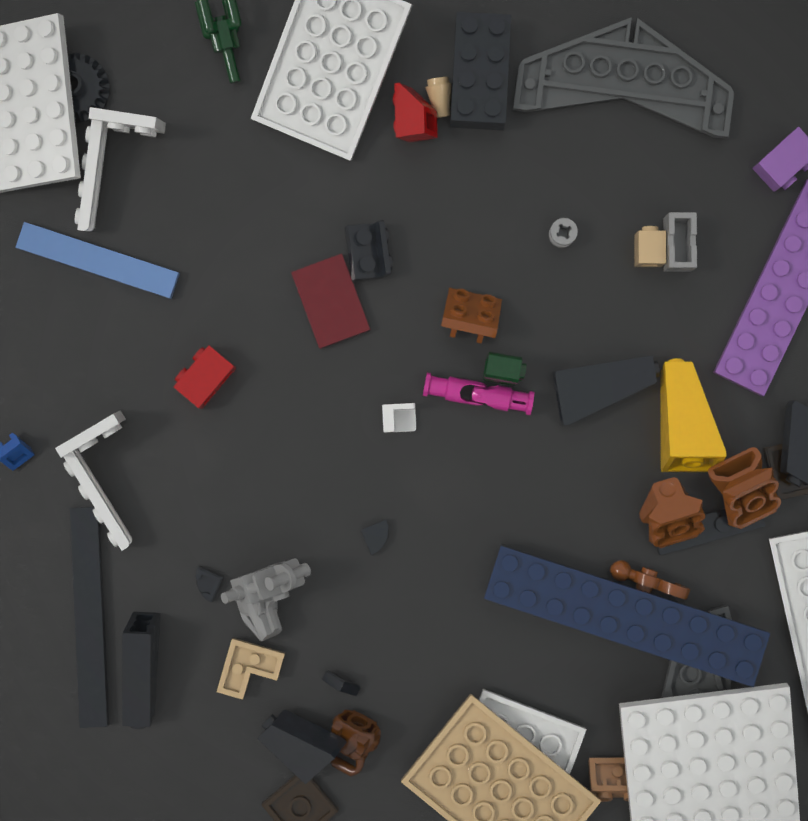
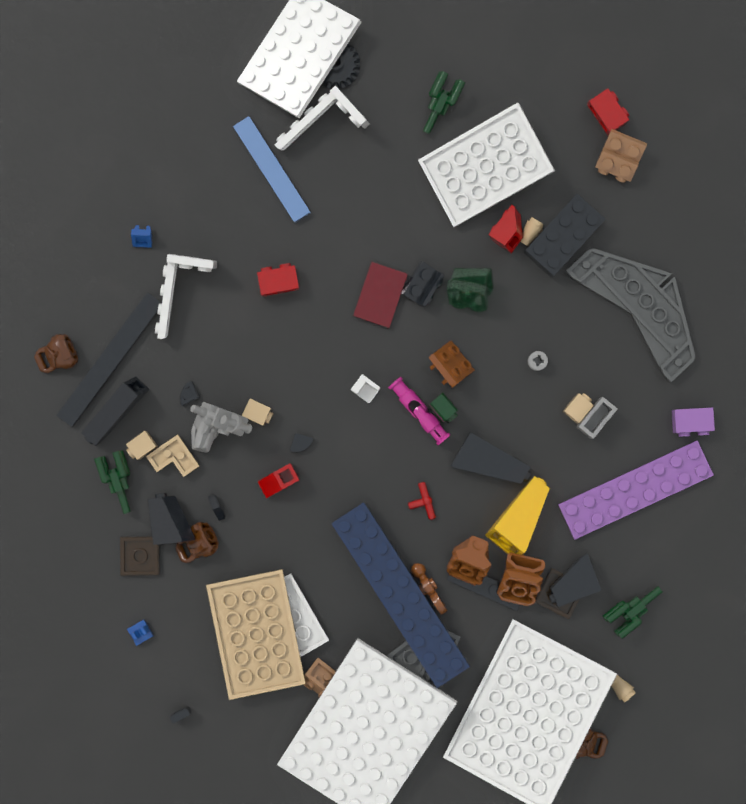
camera: 40 degrees right, 0 degrees up
(27, 656) = (59, 354): none -> reddish brown piece
(202, 684) = (141, 446): none -> tan brick
(202, 743) = (115, 477): none -> dark green plant
(301, 541) = (257, 412): none -> tan brick
(386, 597) = (278, 480): none -> red slope
(424, 212) = (470, 288): none -> clear green piece
(566, 487) = (425, 501): none -> red piece

